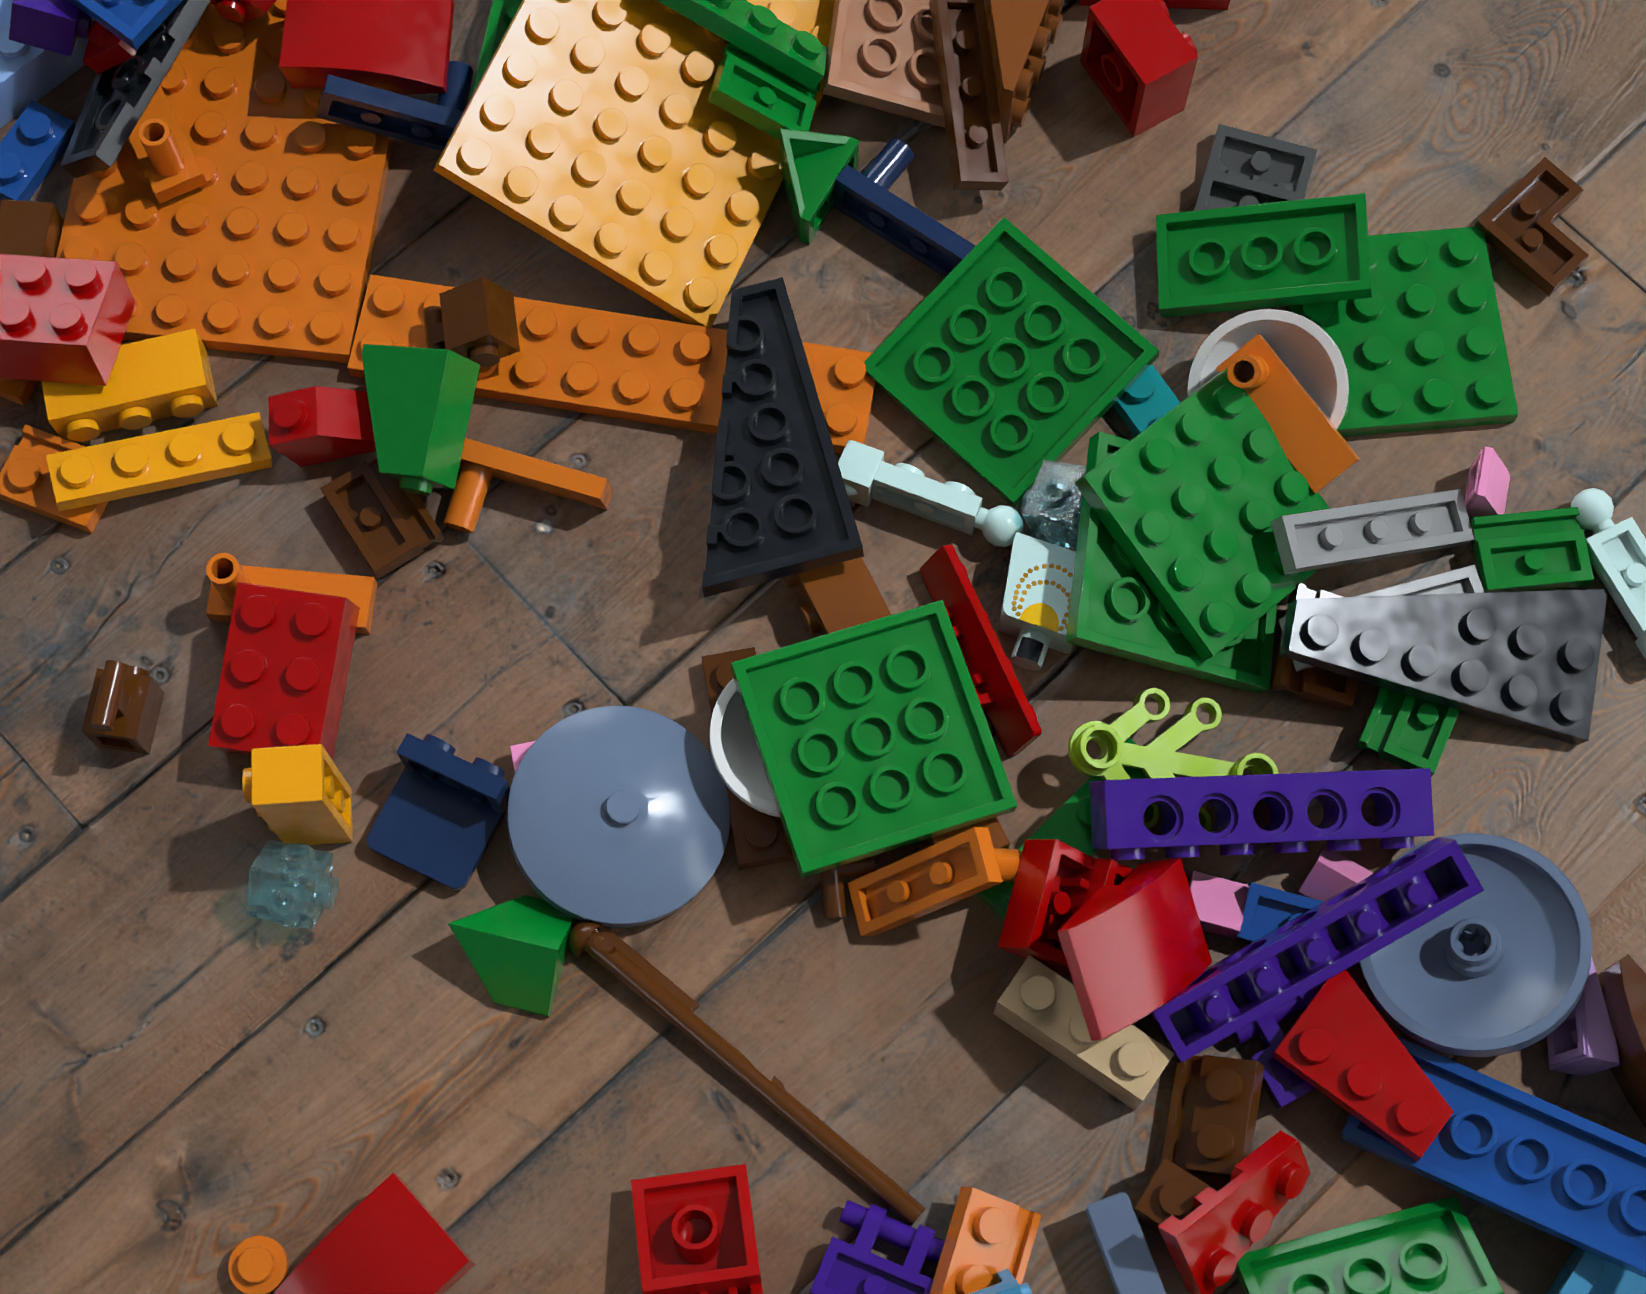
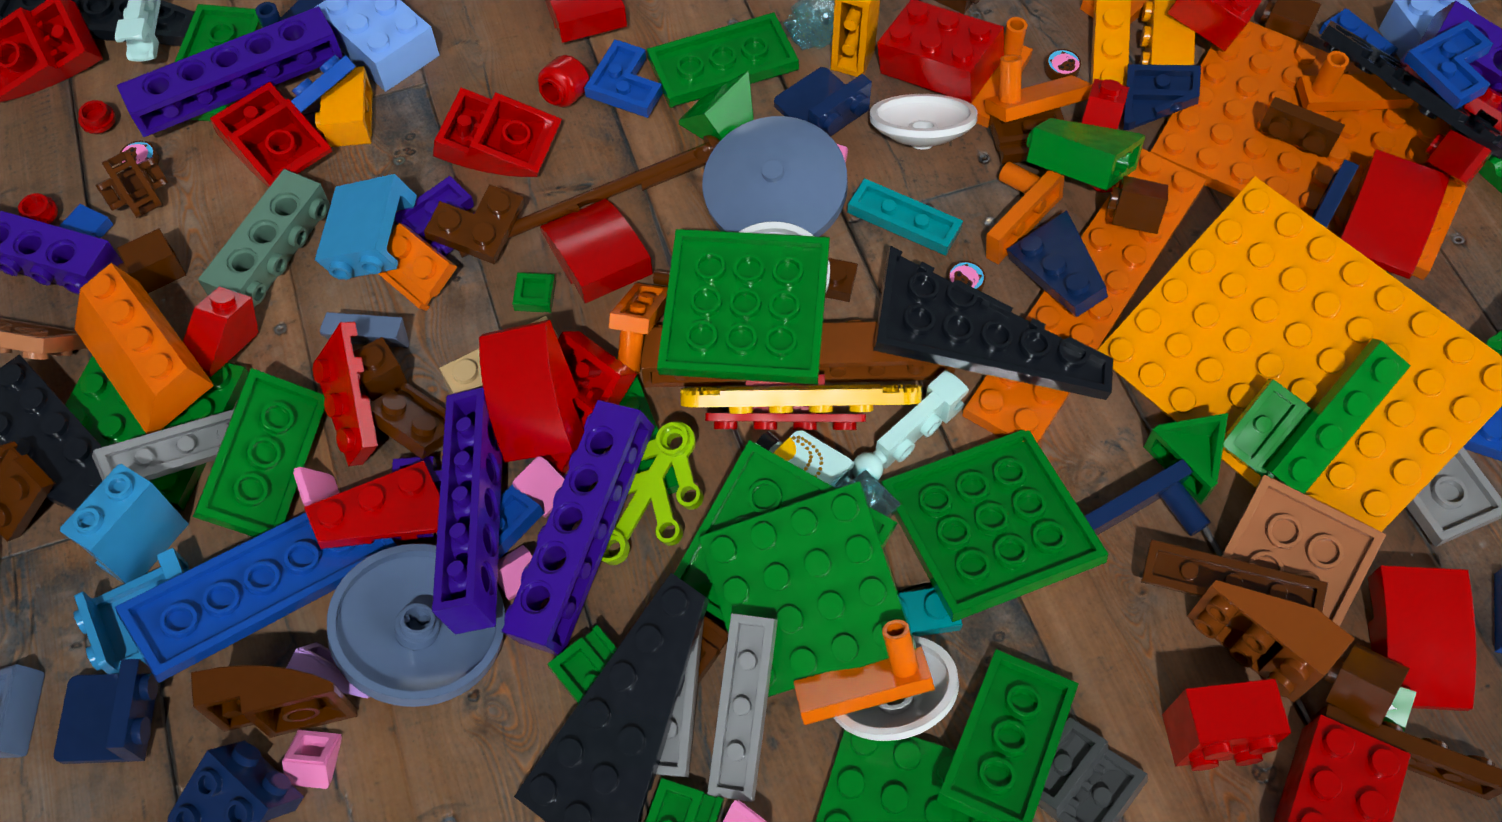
camera: 115 degrees right, 10 degrees down
(226, 516) = (1062, 64): none -> tile
(243, 363) = (1159, 91): none -> dark blue wing
(254, 187) = (1301, 127): none -> reddish brown plate
(318, 520) = (1019, 103): none -> orange piece
(402, 651) = (923, 119): none -> white dish
(410, 998) = (710, 59): none -> green plate
(523, 1141) = (617, 81): none -> blue plate
(557, 1216) = (562, 81): none -> red head
(596, 626) = (905, 216): none -> teal plate
(601, 400) = (1060, 264): none -> dark blue wing
(661, 517) = (968, 273): none -> tile
(834, 1014) = (597, 250): none -> red slope
(890, 1182) = (477, 233): none -> reddish brown plate
(935, 576) = (818, 397): none -> yellow plate
(936, 1071) = (534, 292): none -> green tile
(1367, 1185) = (314, 485): none -> bright pink slope

